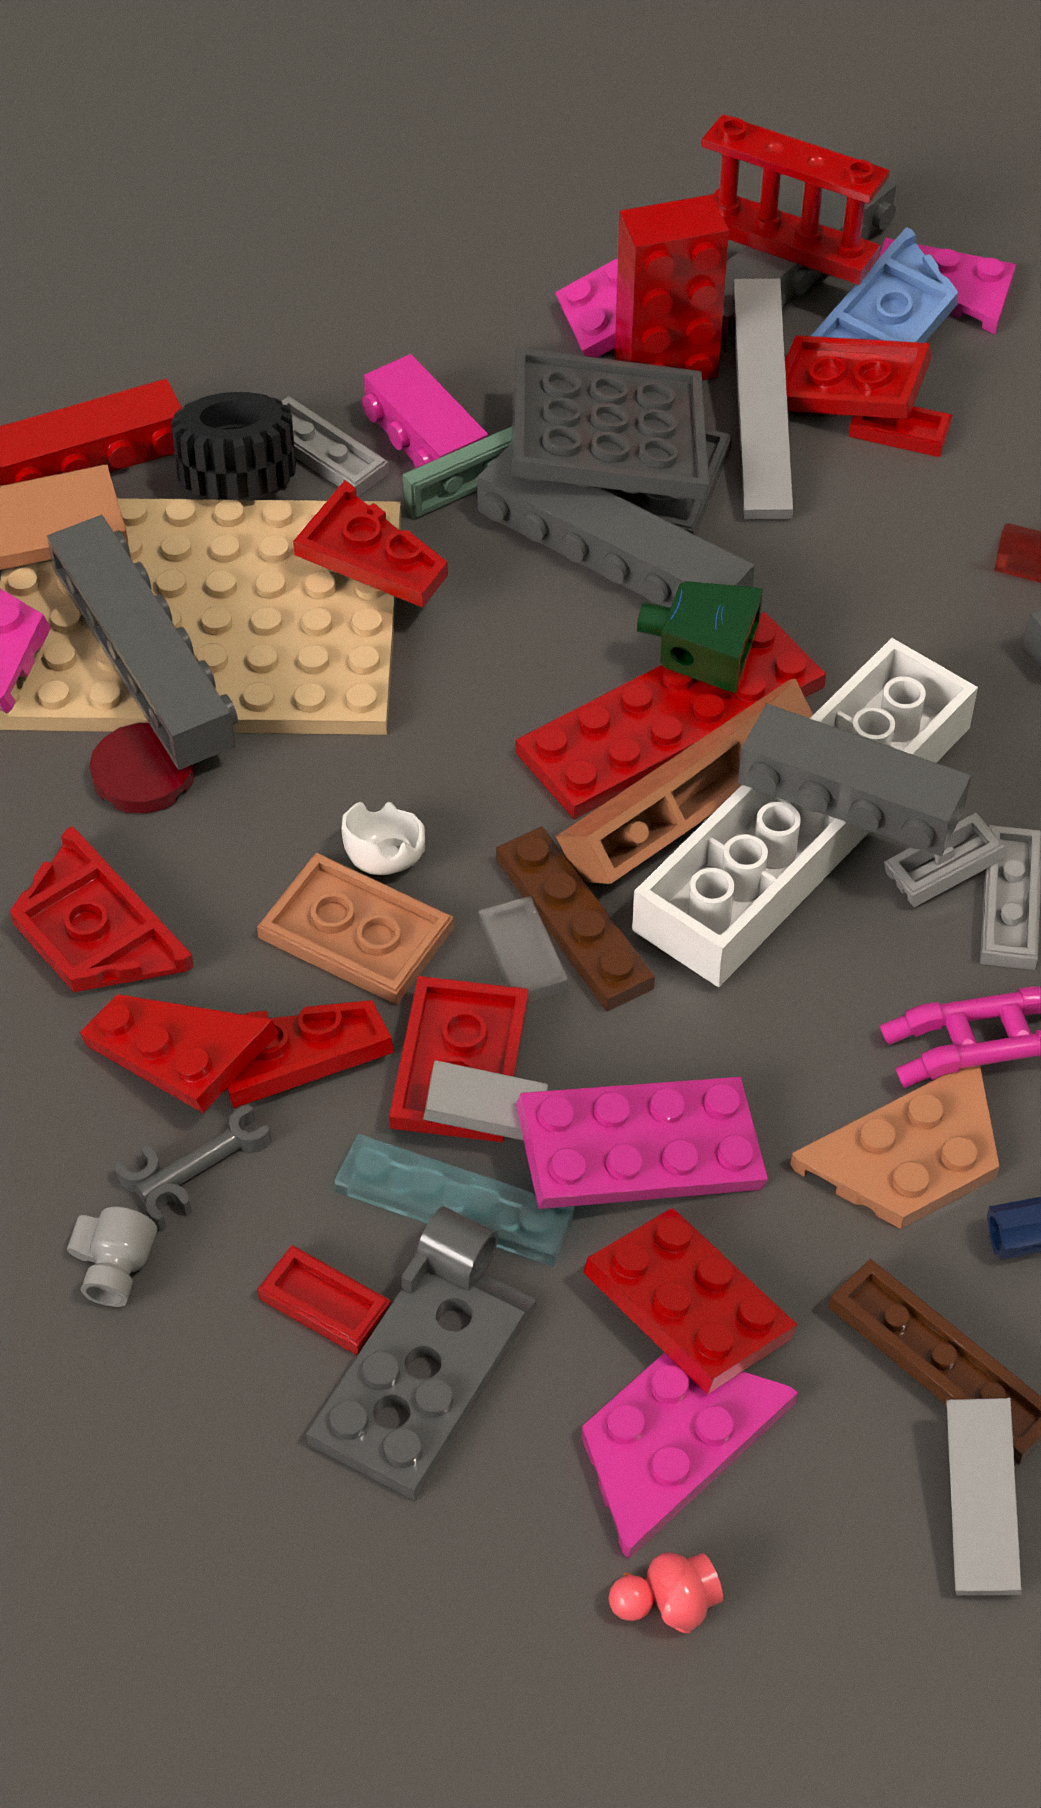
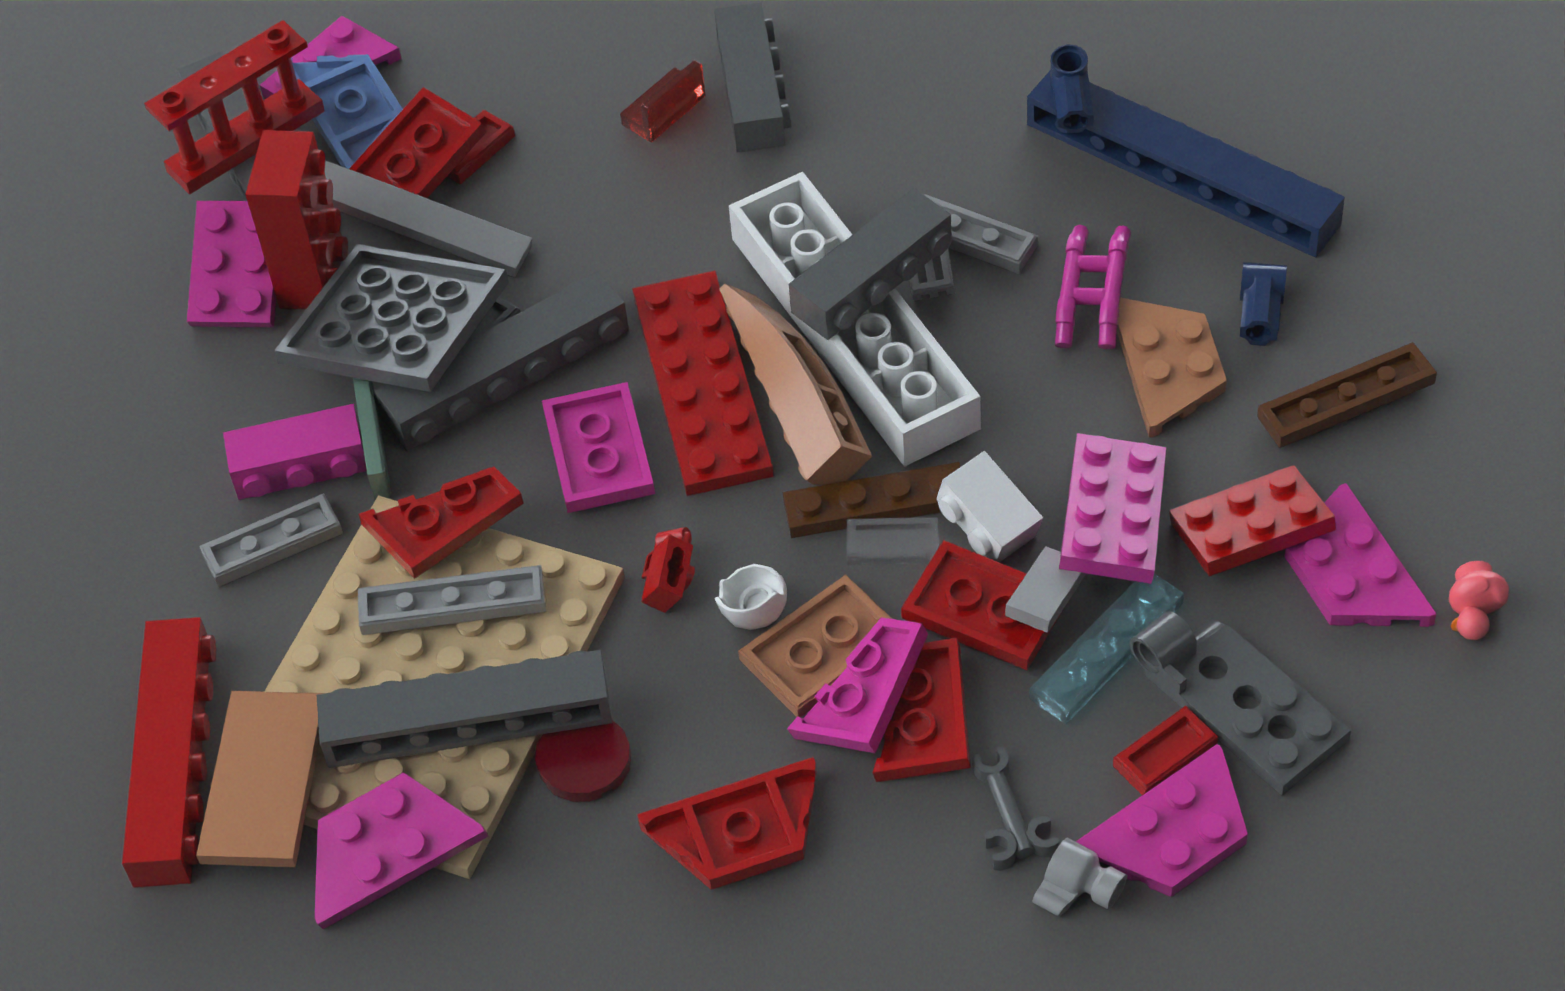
camera: 65 degrees left, 0 degrees up
(178, 1046) = (901, 788): red wing -> none
(220, 1337) = (1175, 827): none -> dark pink wing
(234, 445) = (259, 590): black tyre -> none
(281, 593) = (451, 600): none -> light grey tile
(286, 975) = (864, 696): none -> dark pink wing
(398, 758) = (668, 569): none -> red piece
(535, 651) = (598, 447): none -> dark pink plate
(584, 1016) = (988, 508): none -> white brick
(706, 631) = (657, 319): dark green torso -> none
(983, 1497) = (1461, 403): light grey tile -> none

